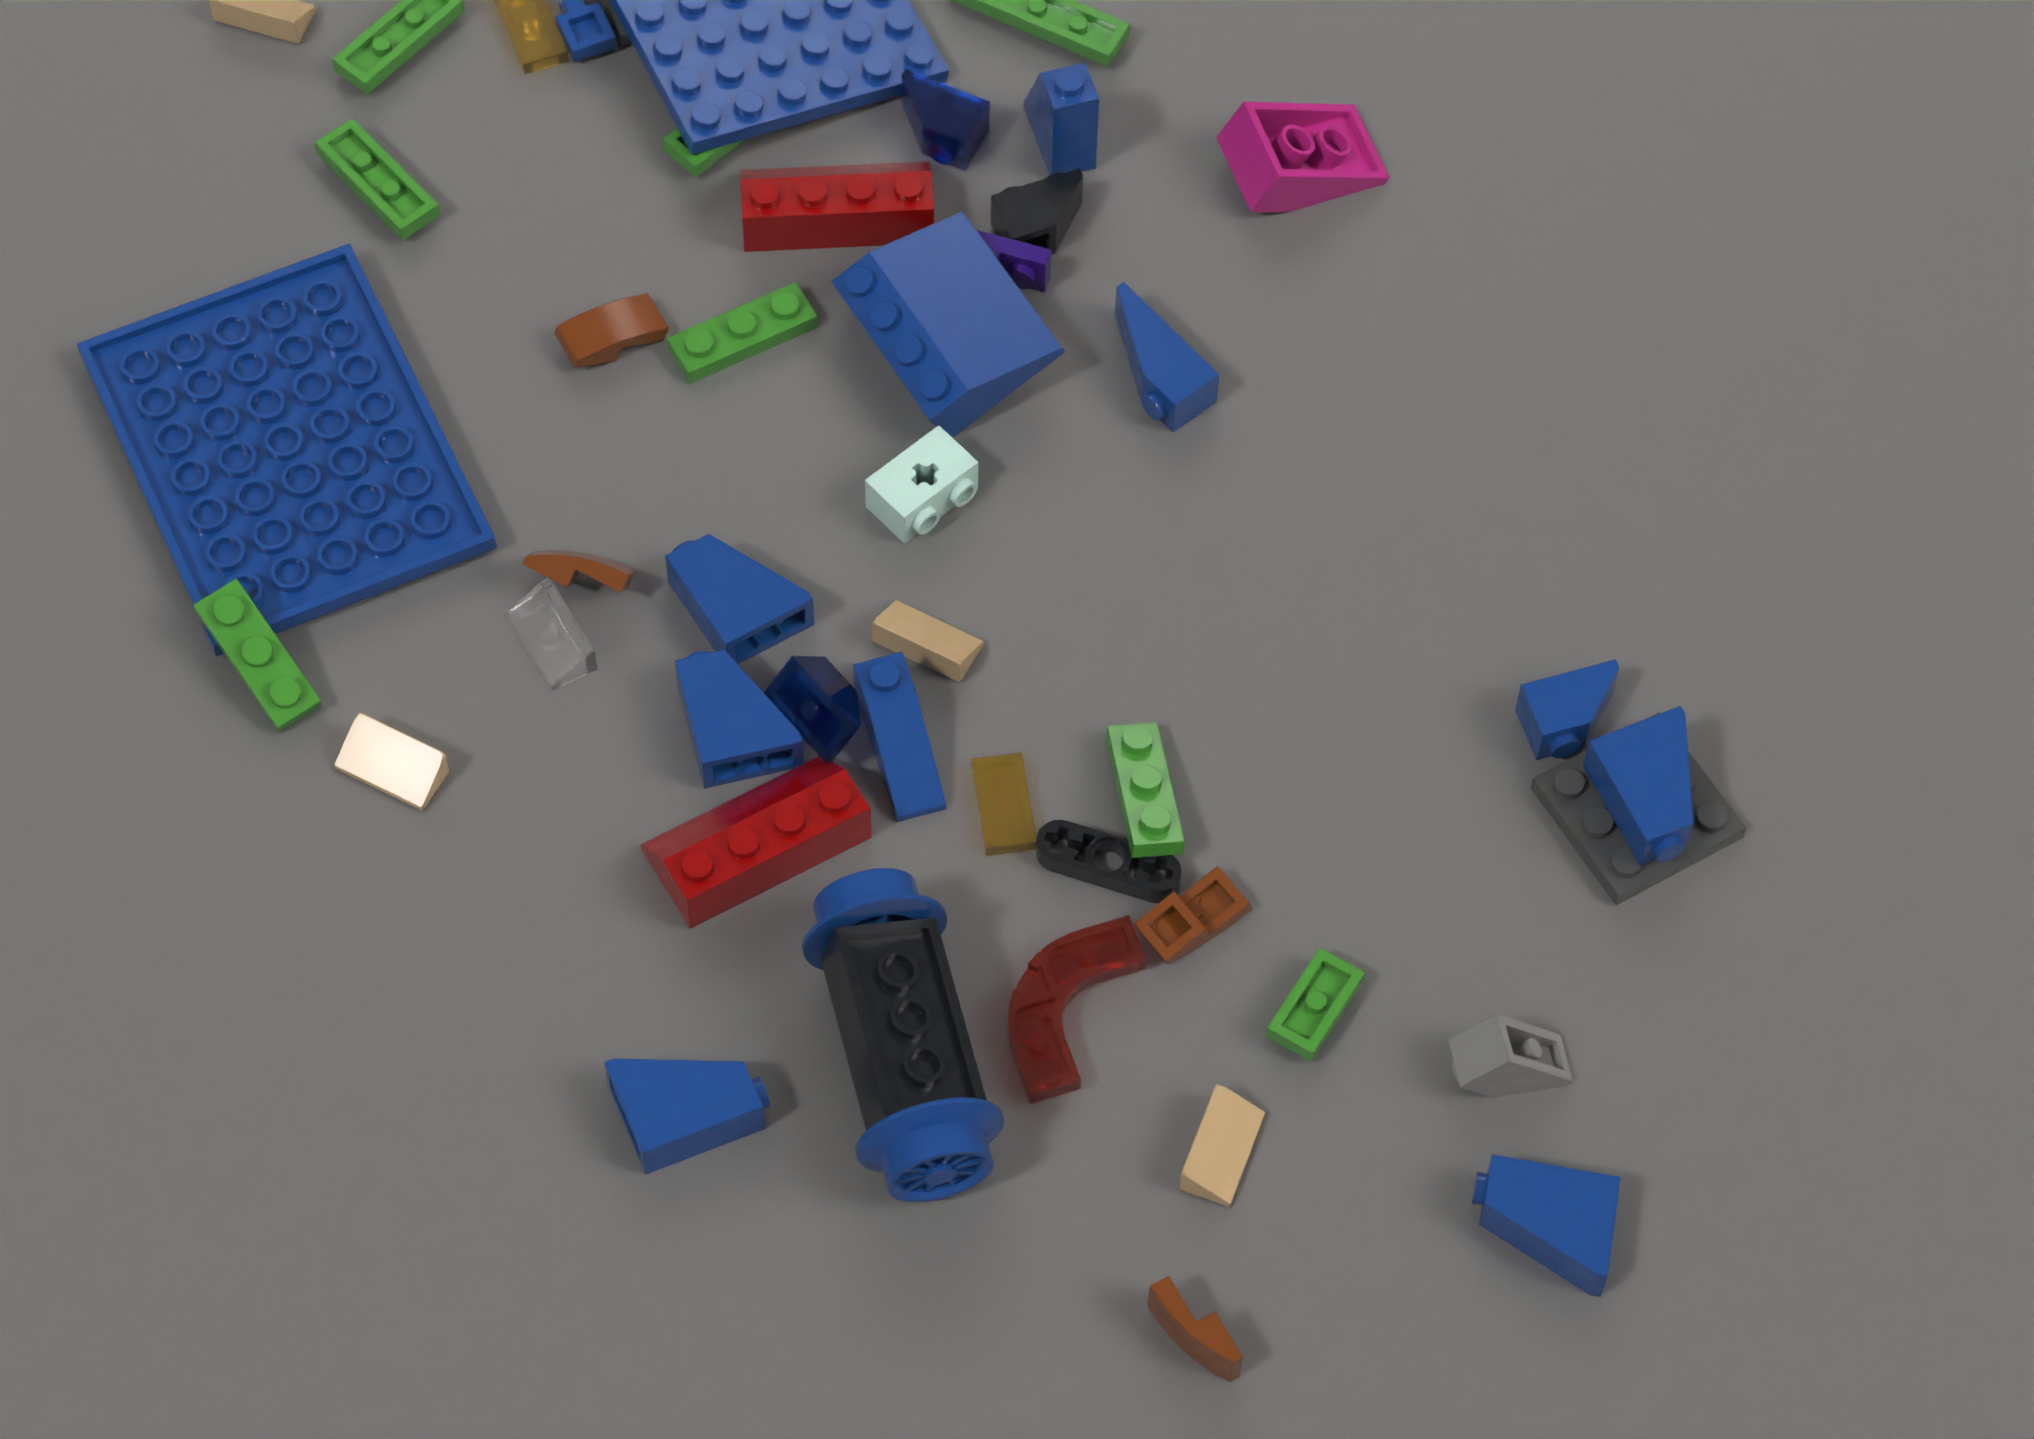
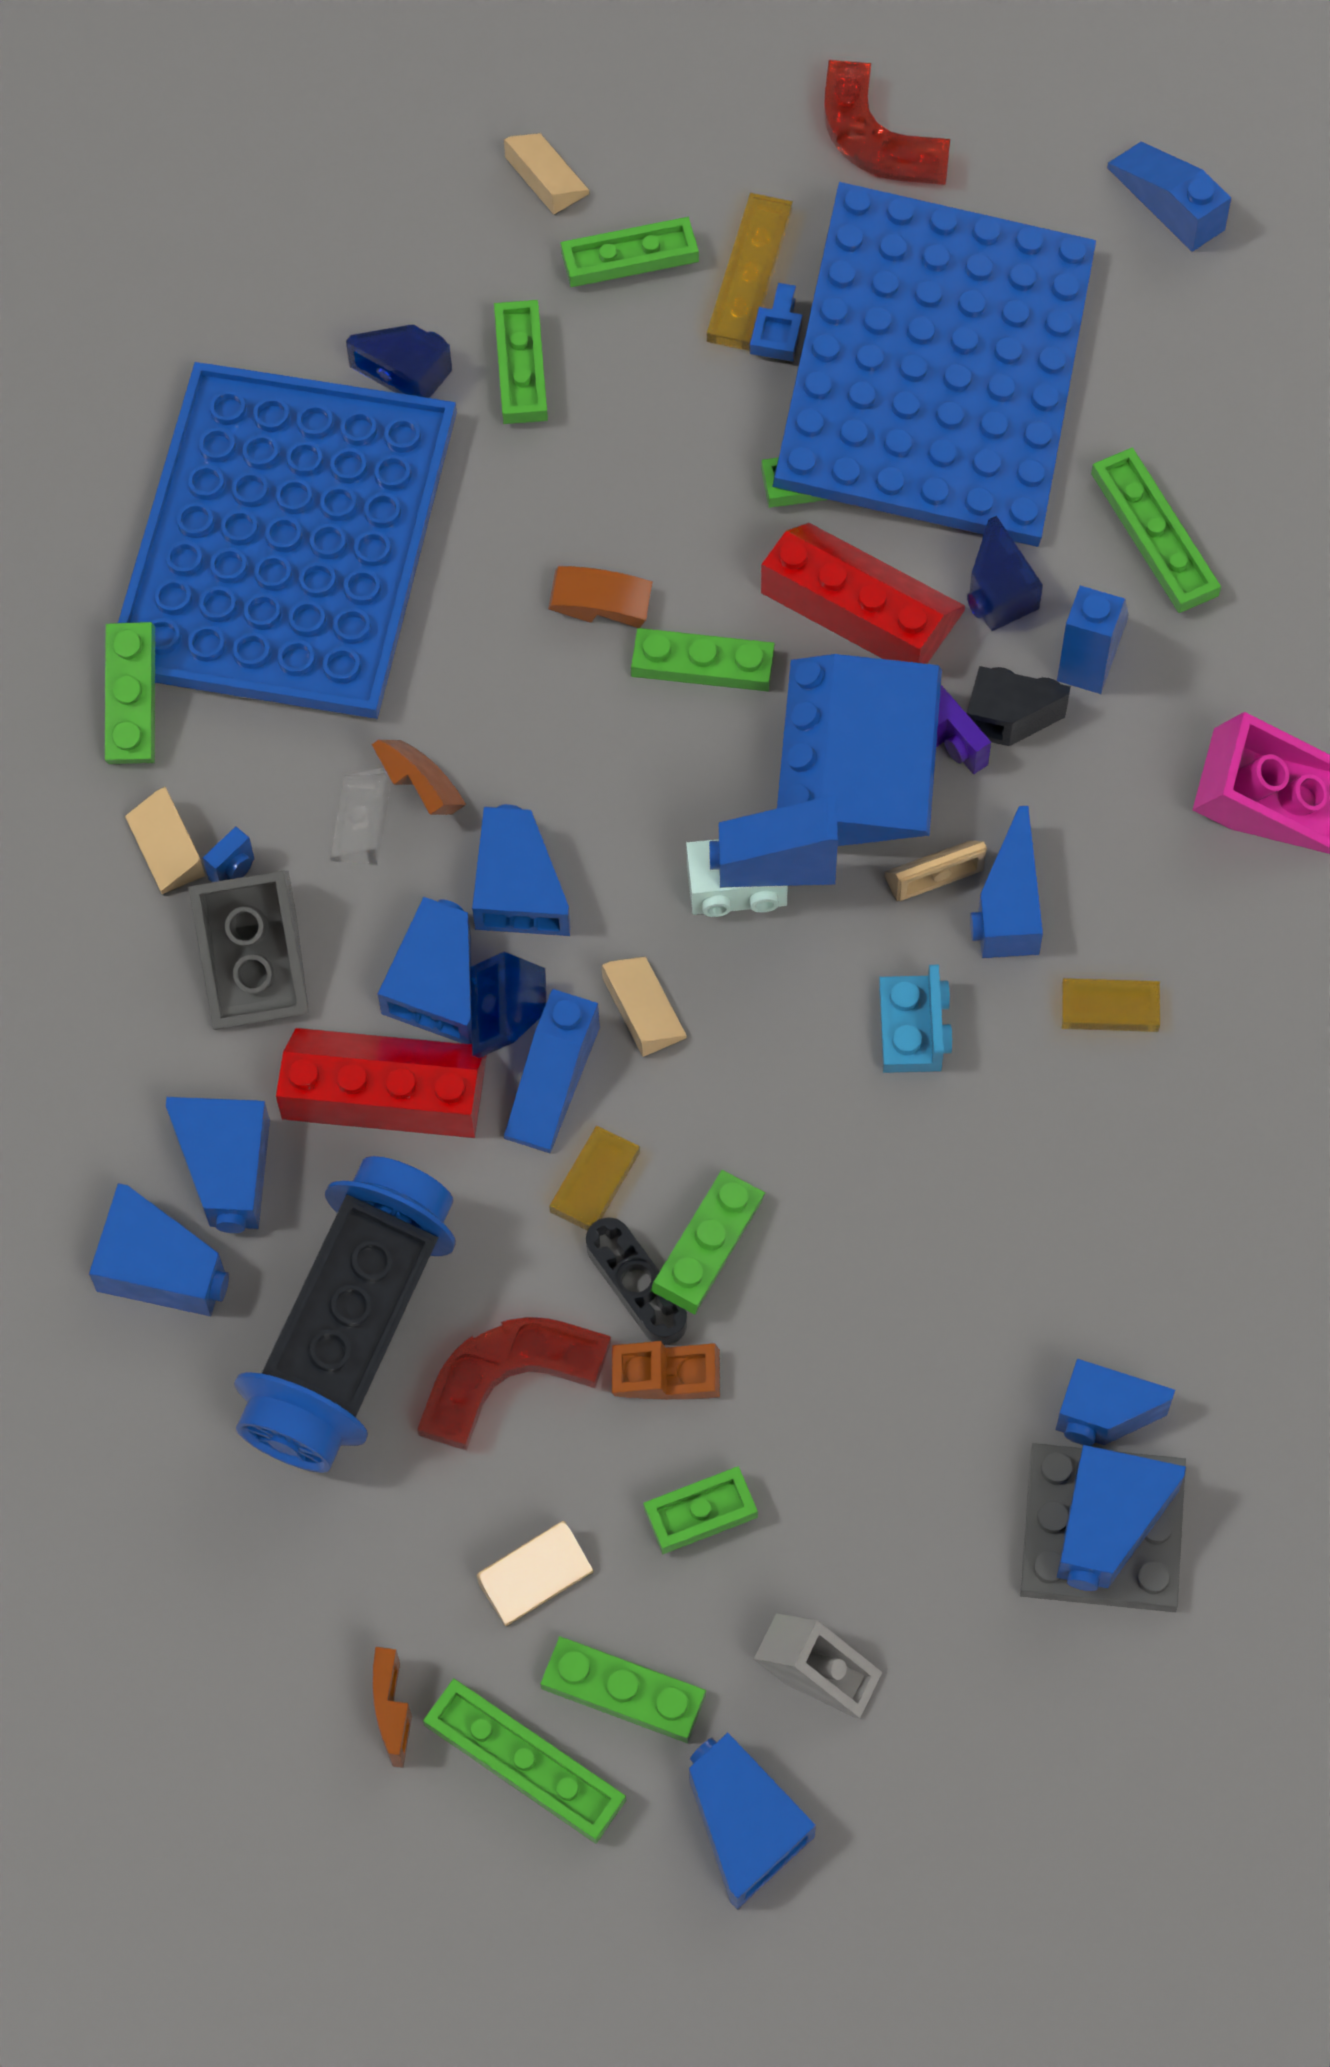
camera: 40 degrees right, 5 degrees up
(266, 236) = (401, 359): none -> clear blue slope
(467, 739) = (229, 857): none -> blue plate
(549, 801) = (249, 949): none -> dark grey slope
(670, 987) = (225, 1156): none -> blue slope
(959, 427) = (779, 846): none -> blue slope
(1080, 382) = (936, 869): none -> tan slope
(1165, 512) = (913, 1022): none -> dark azure bracket
(1308, 404) = (1110, 1005): none -> clear yellow tile
(1339, 1297) = (525, 1761): none -> bright green plate
(1369, 1188) = (623, 1689): none -> bright green plate

